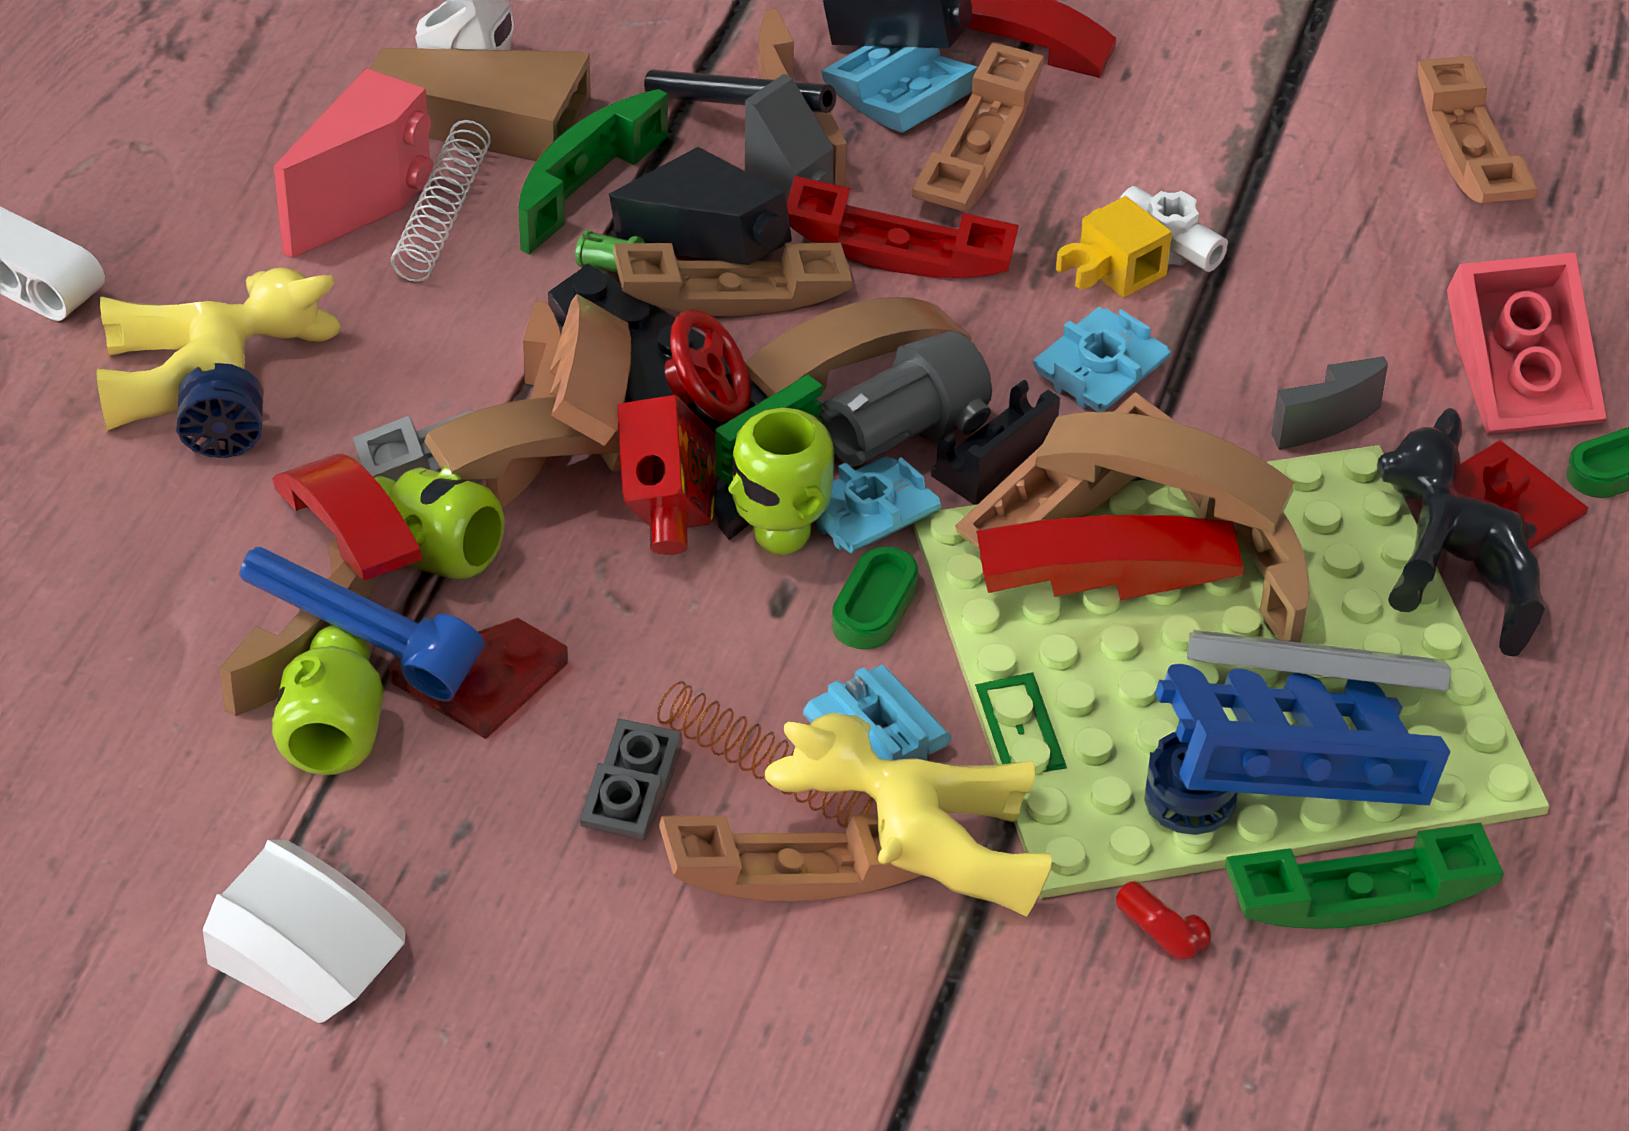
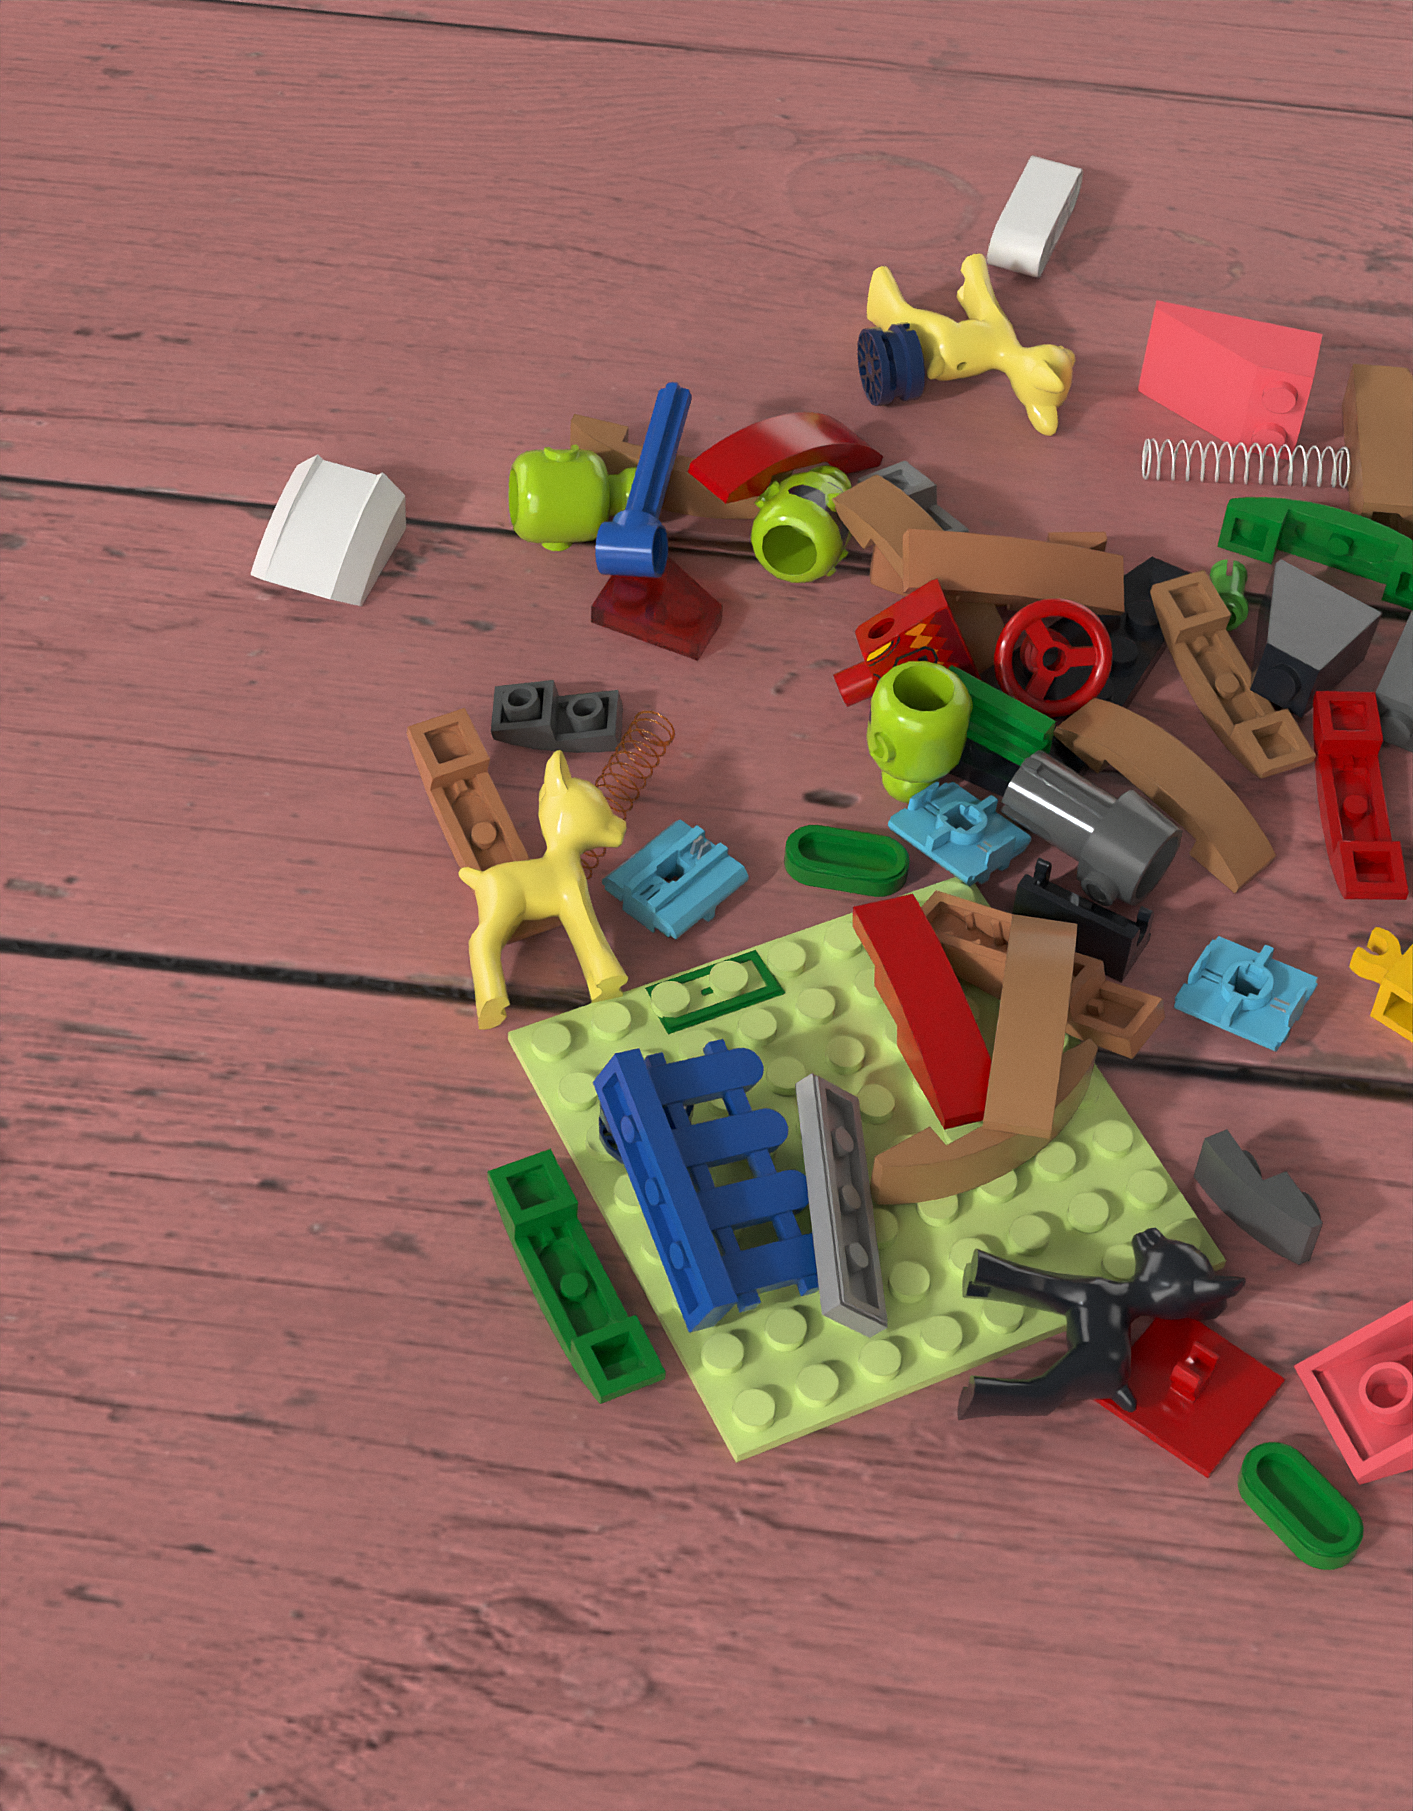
camera: 75 degrees right, 5 degrees up
(1175, 935) = (481, 1117): red arm -> none

